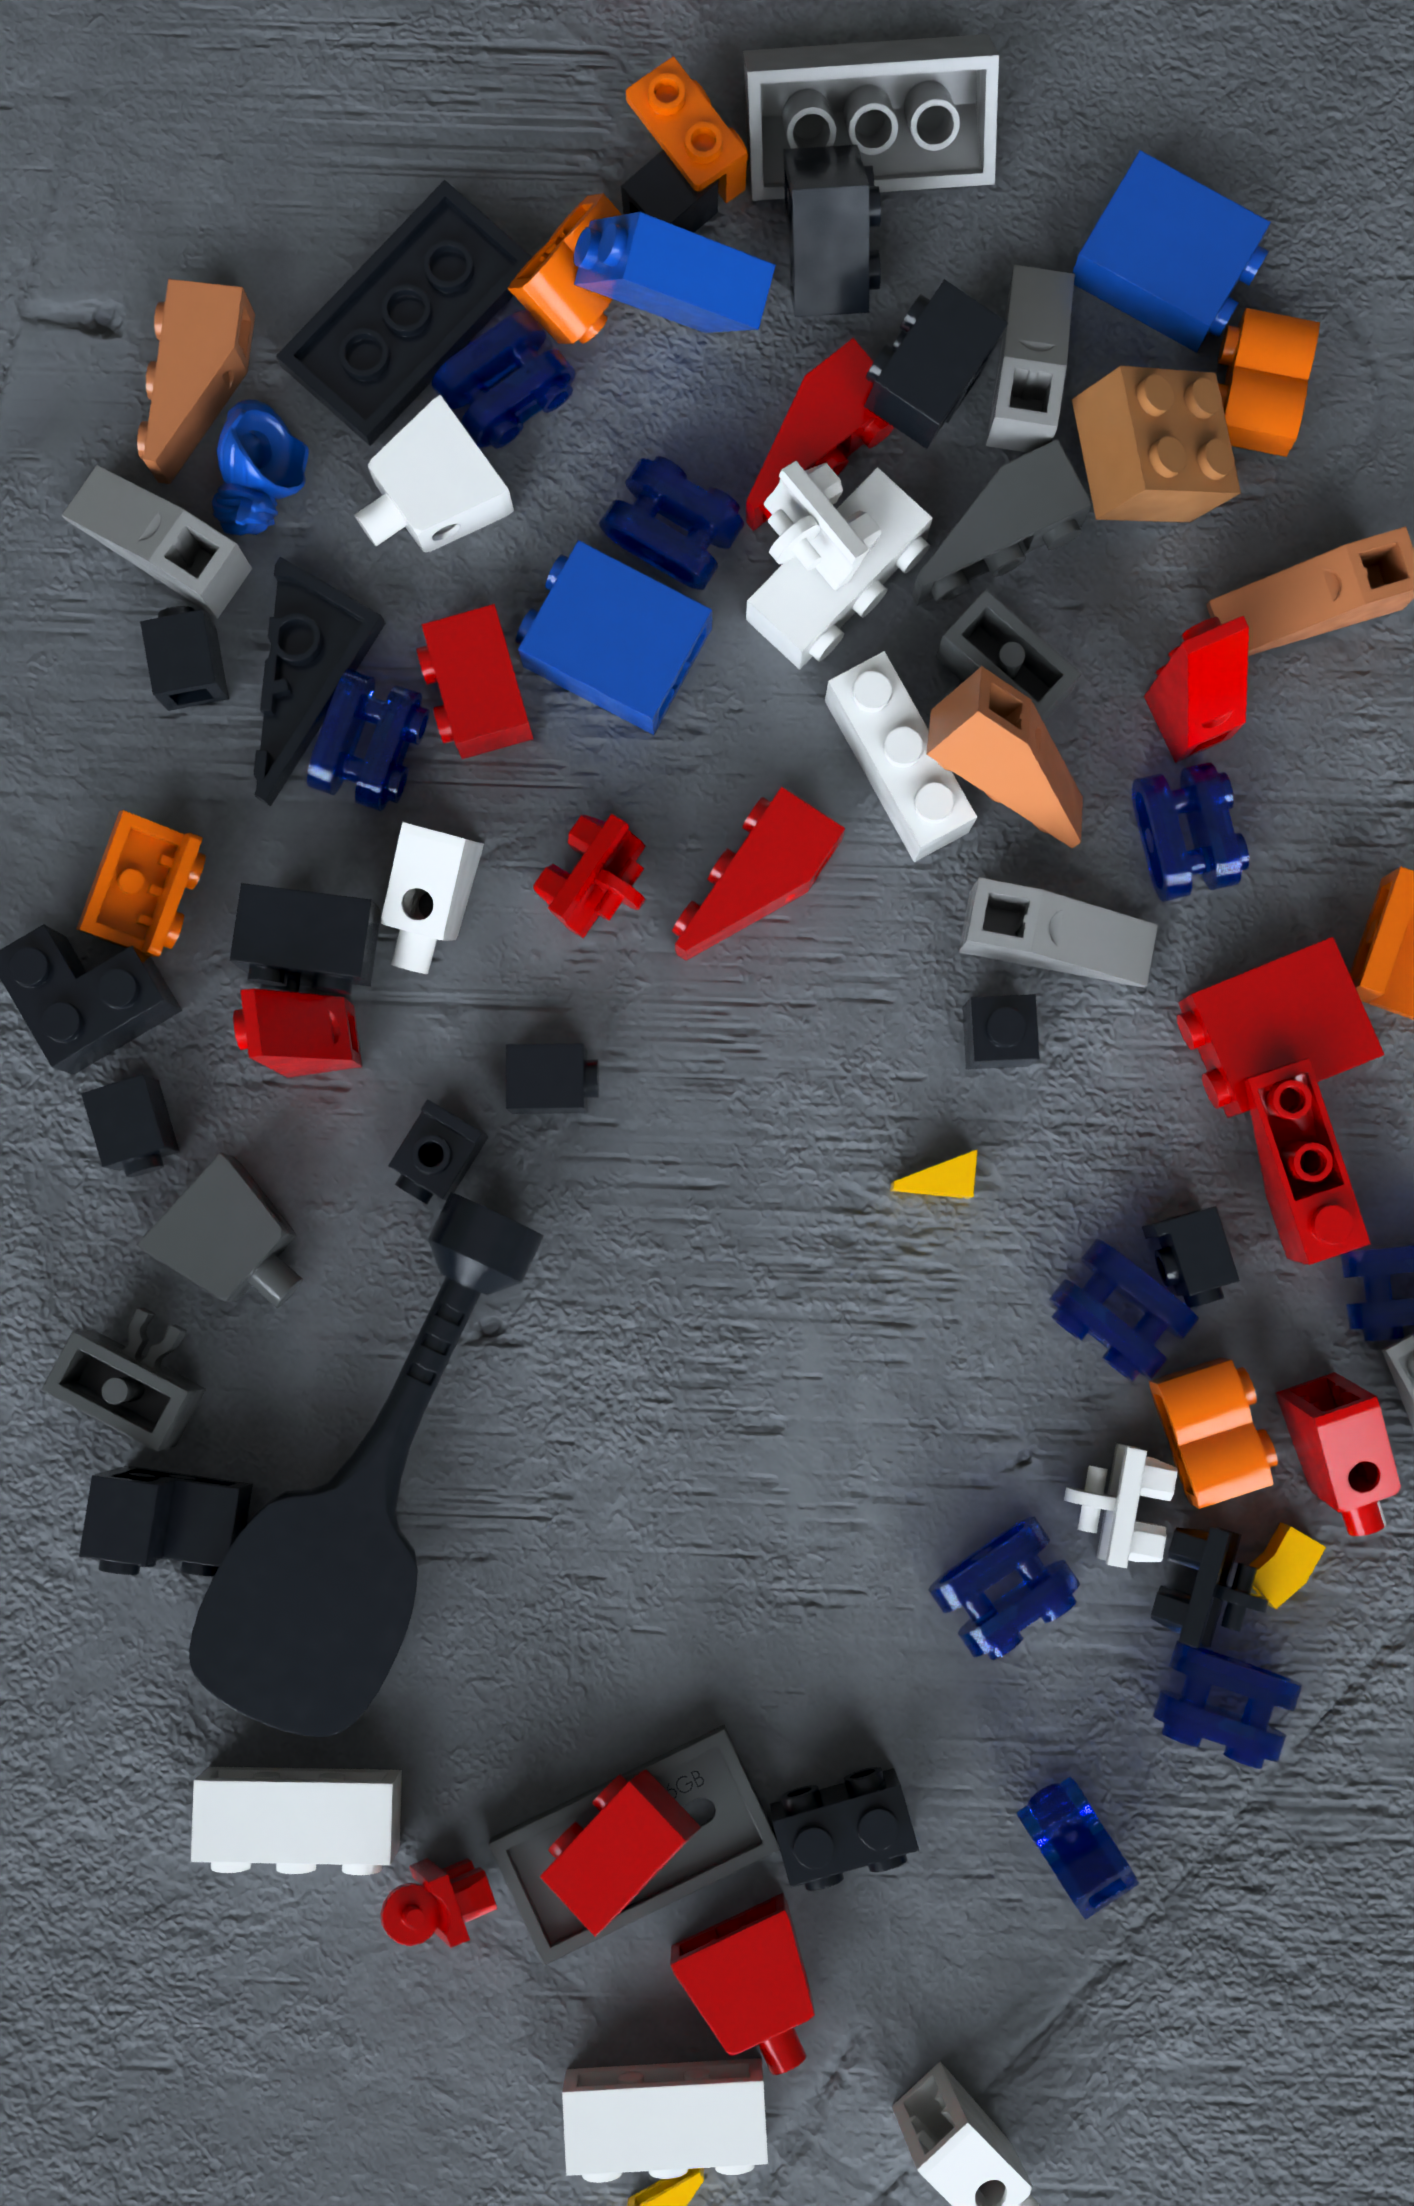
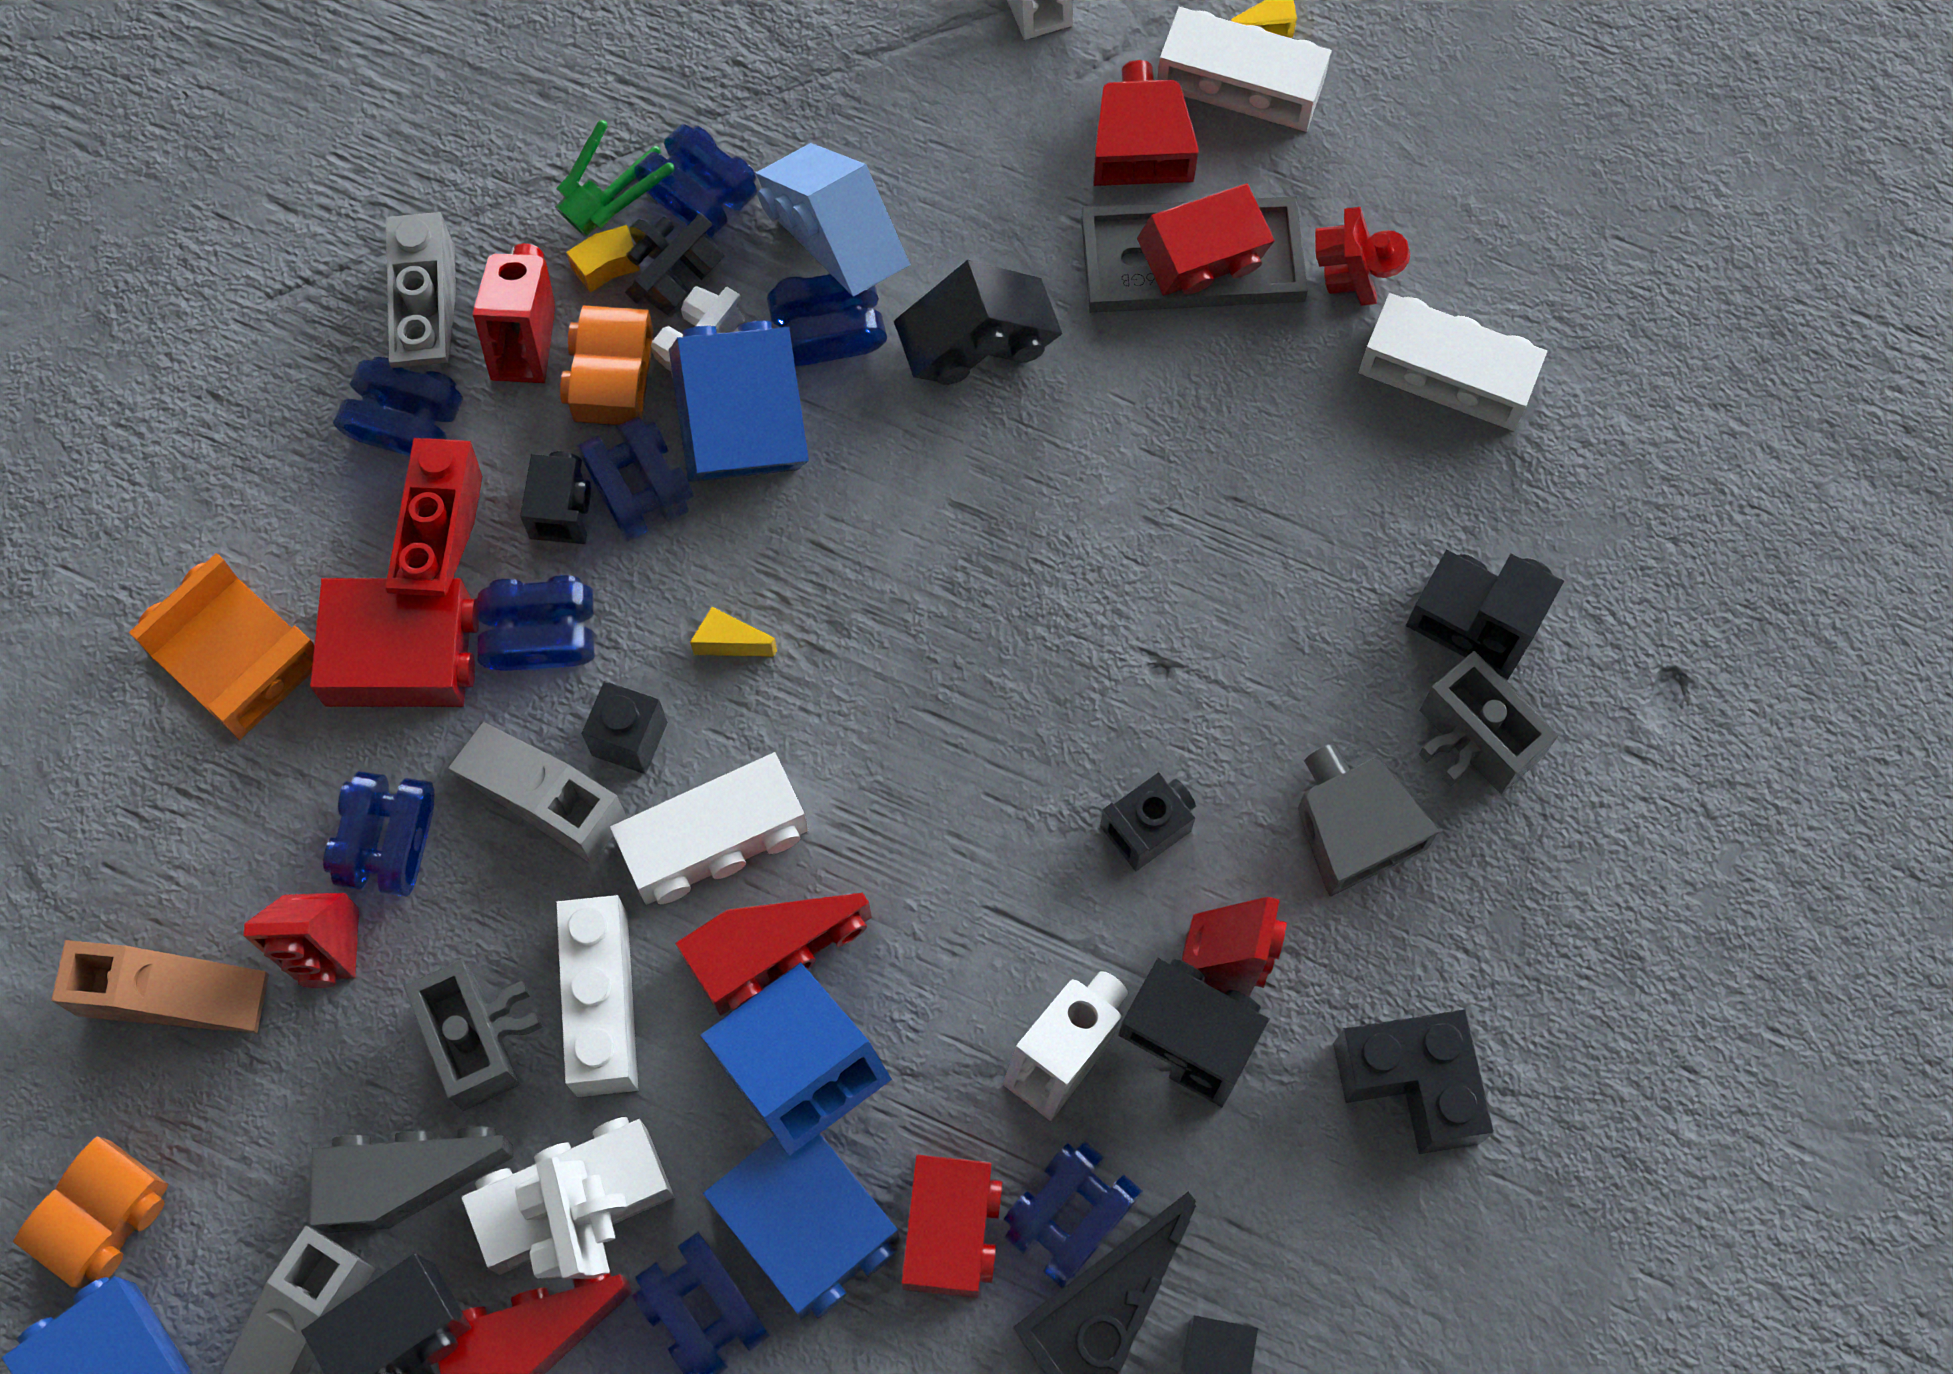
camera: 160 degrees left, 15 degrees down
(131, 1125) = (1411, 947): black brick -> none
(142, 885) = (1329, 1159): orange bracket -> none
(323, 1575) = (1364, 511): black piece -> none
(550, 1078) = (1026, 841): black brick -> none
(599, 879) = (938, 990): red hips -> none
(680, 763) = (796, 1058): none -> blue brick
(831, 1638) = (976, 315): none -> black brick
(843, 1828) = (1027, 200): black brick -> none
(865, 963) = (711, 830): none -> white brick
(1003, 748) = (505, 945): nougat slope -> none
(1048, 1431) = (738, 401): none -> blue brick
(1050, 1702) = (834, 215): none -> light blue wedge
(1077, 1846) = (859, 124): clear blue brick -> none
(1131, 1143) = (535, 624): none -> clear blue brick
(1155, 445) = (225, 1179): medium nougat brick -> none
(1332, 1615) = (587, 204): none -> green plant

